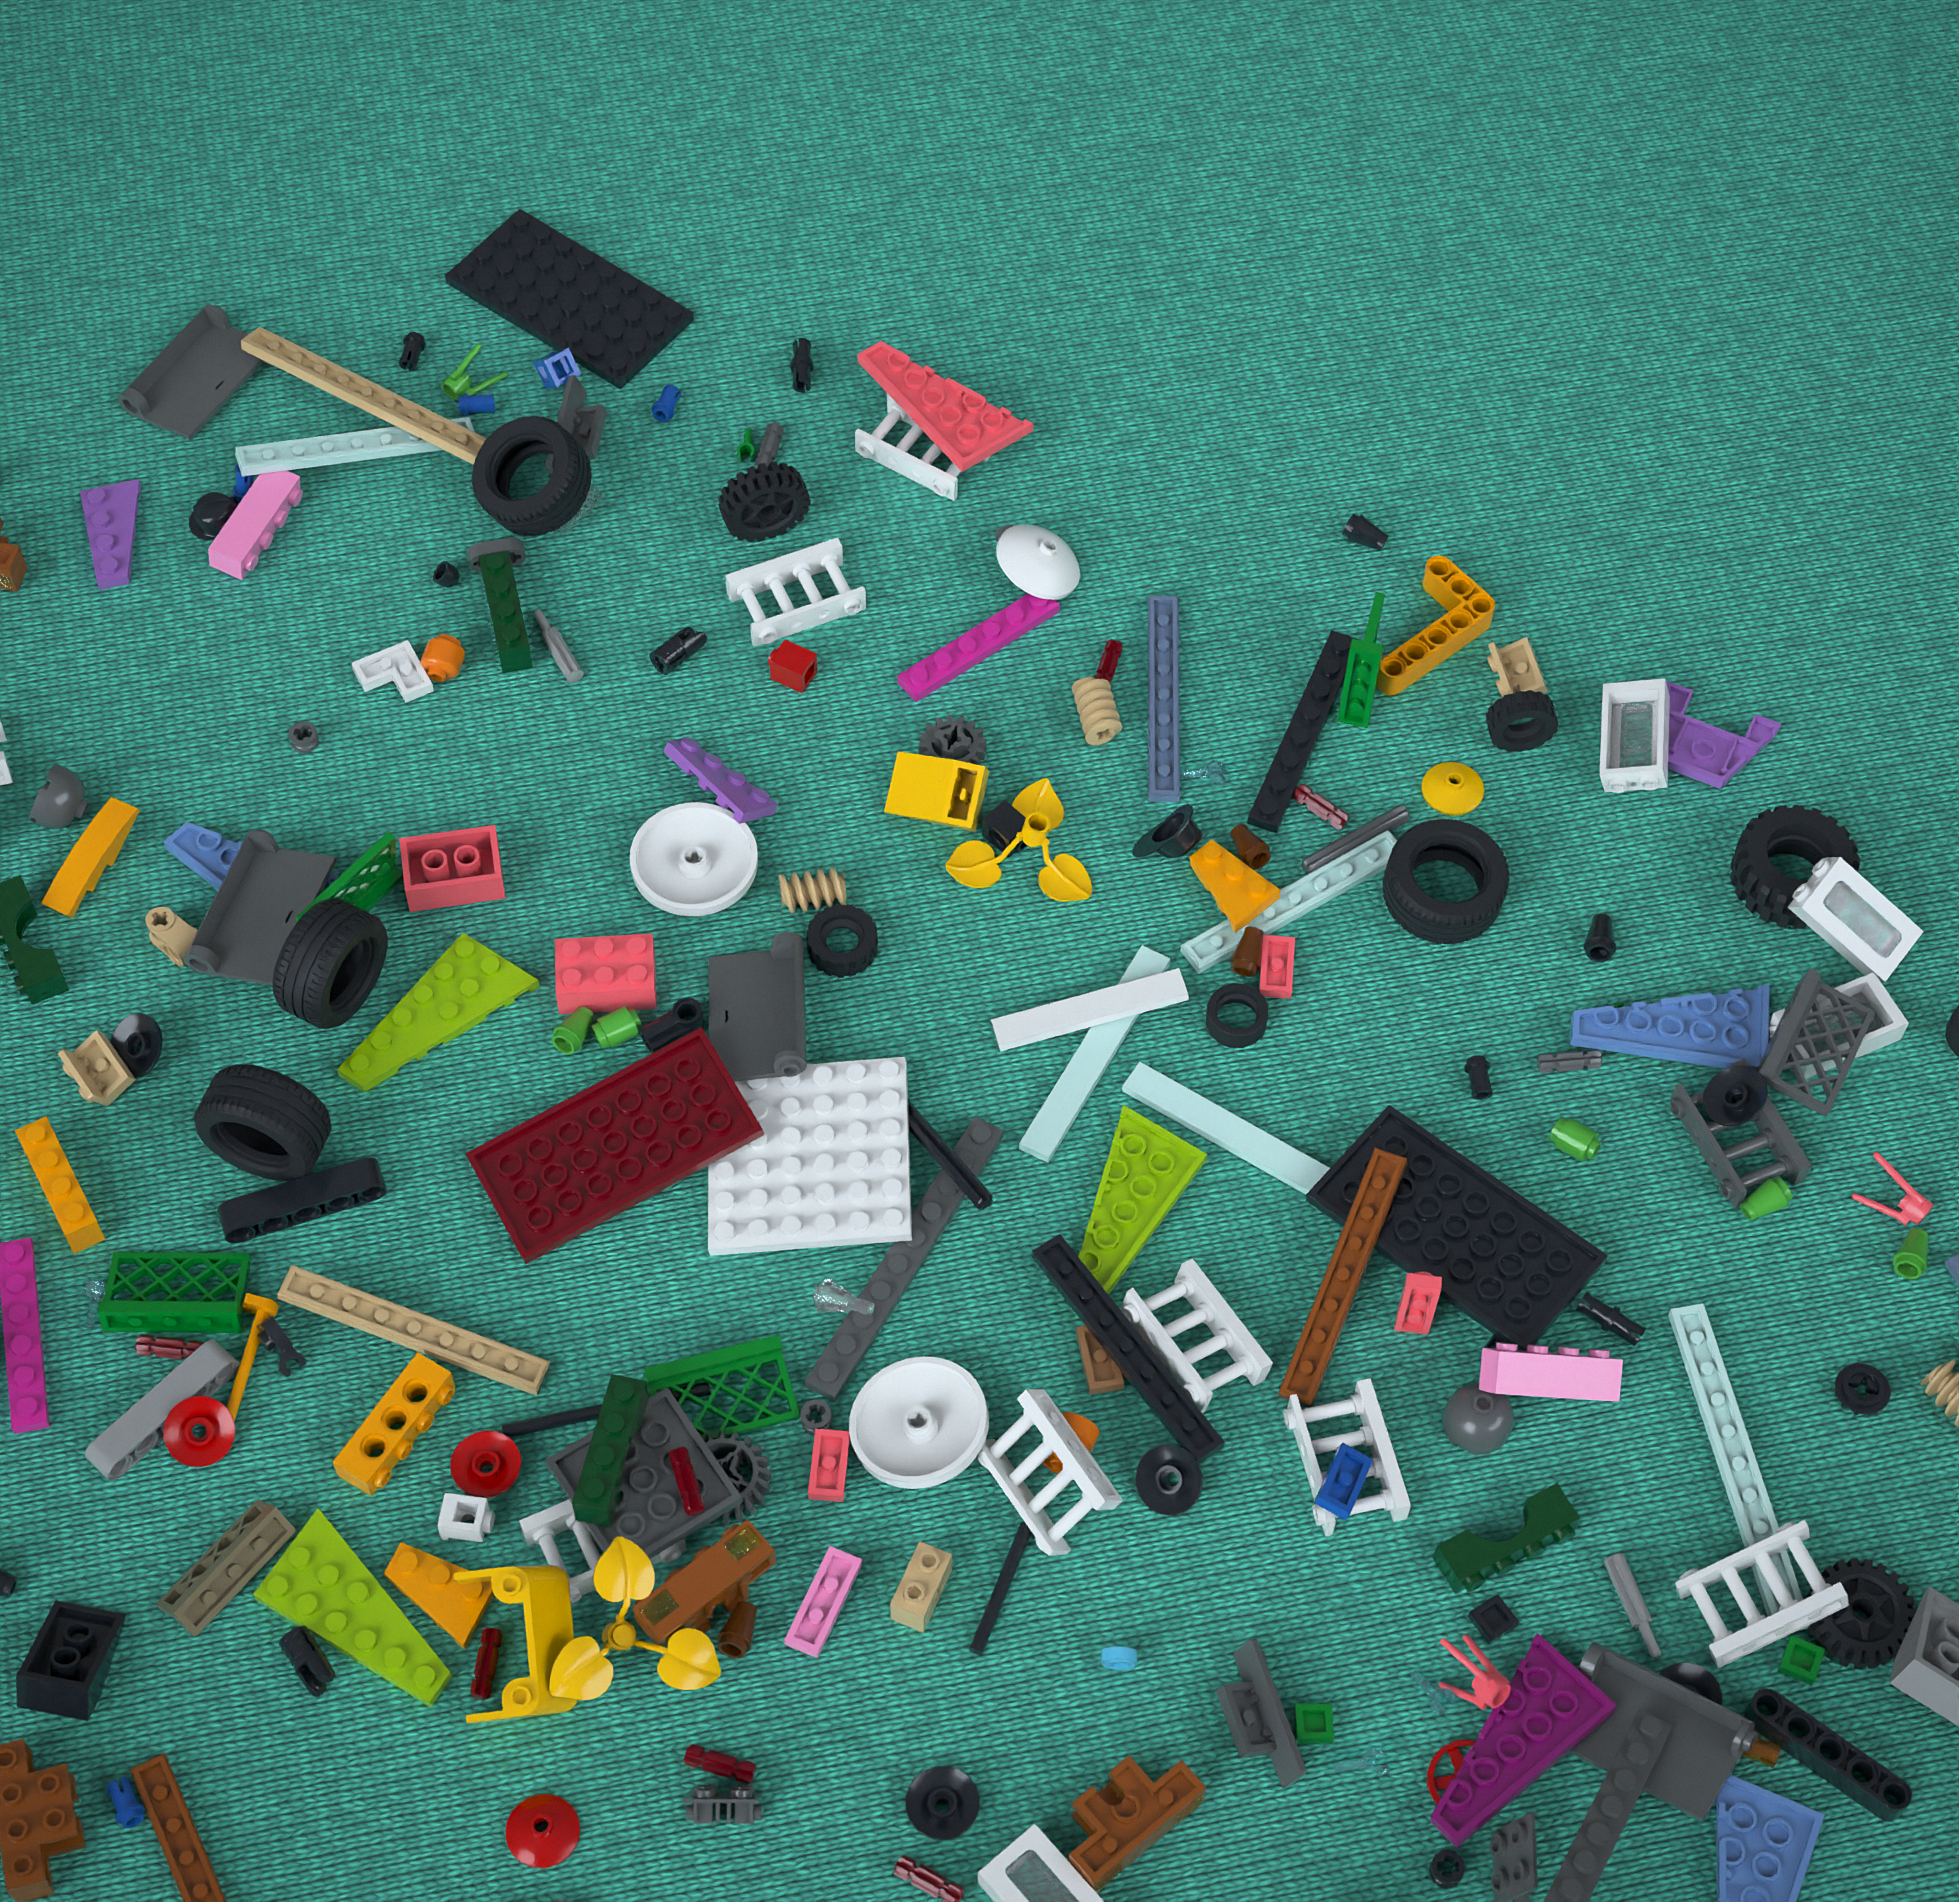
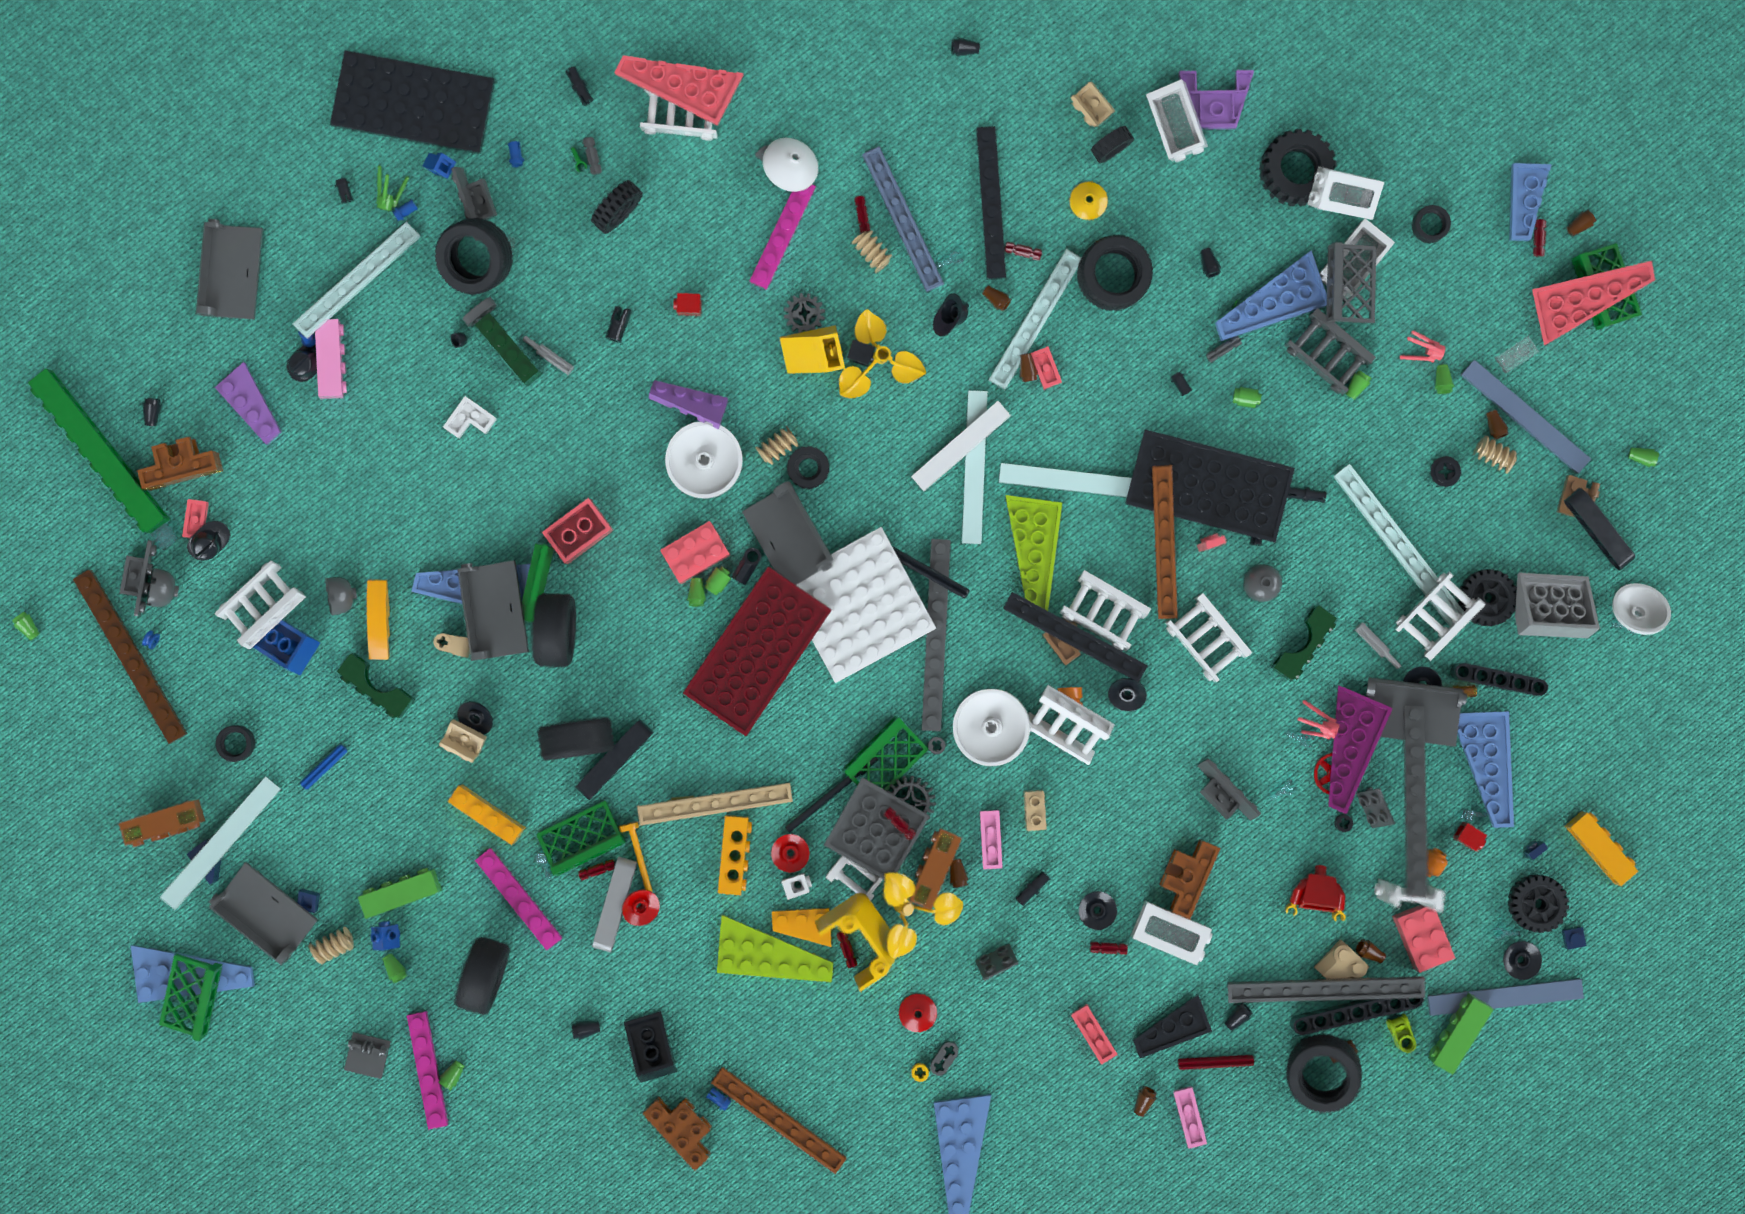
camera: 25 degrees left, 30 degrees up
(226, 1567) = (697, 966): dark tan fence -> none
(274, 1338) = (647, 842): black plate -> none
(300, 730) = (440, 481): dark grey bush -> none
(307, 1659) = (763, 991): black hinge -> none
(364, 394) = (340, 243): tan plate -> none
(442, 658) = (491, 398): orange head -> none
(443, 1004) = (619, 607): lime wing -> none
(604, 1464) = (856, 829): dark green arch -> none
(720, 1764) = (983, 942): dark red axle -> none
(787, 569) = (656, 235): white fence -> none
(829, 1465) = (957, 768): coral plate -> none
(834, 1298) = (914, 679): clear cone -> none
(851, 1714) = (1032, 888): none -> black pin
(1001, 1589) = (1071, 789): black bar -> none
(1119, 1658) = (1145, 797): medium azure tile -> none
(1233, 1036) = (1024, 409): black tyre -> none
(1234, 885) = (999, 327): light orange wing -> none
(1313, 1723) = (1252, 784): green plate -> none
(1343, 1481) = (1215, 658): blue plate -> none
(1362, 671) = (1017, 167): green fence -> none
(1364, 833) = (1051, 263): dark grey axle -> none
(1468, 617) = (1040, 98): light orange beam -> none
(1493, 1619) = (1313, 686): black tile -> none
(1550, 1373) = (1292, 549): bright pink brick -> none
(1729, 1087) = (1313, 336): black dish -> none
(1801, 1660) = (1469, 636): green plate -> none

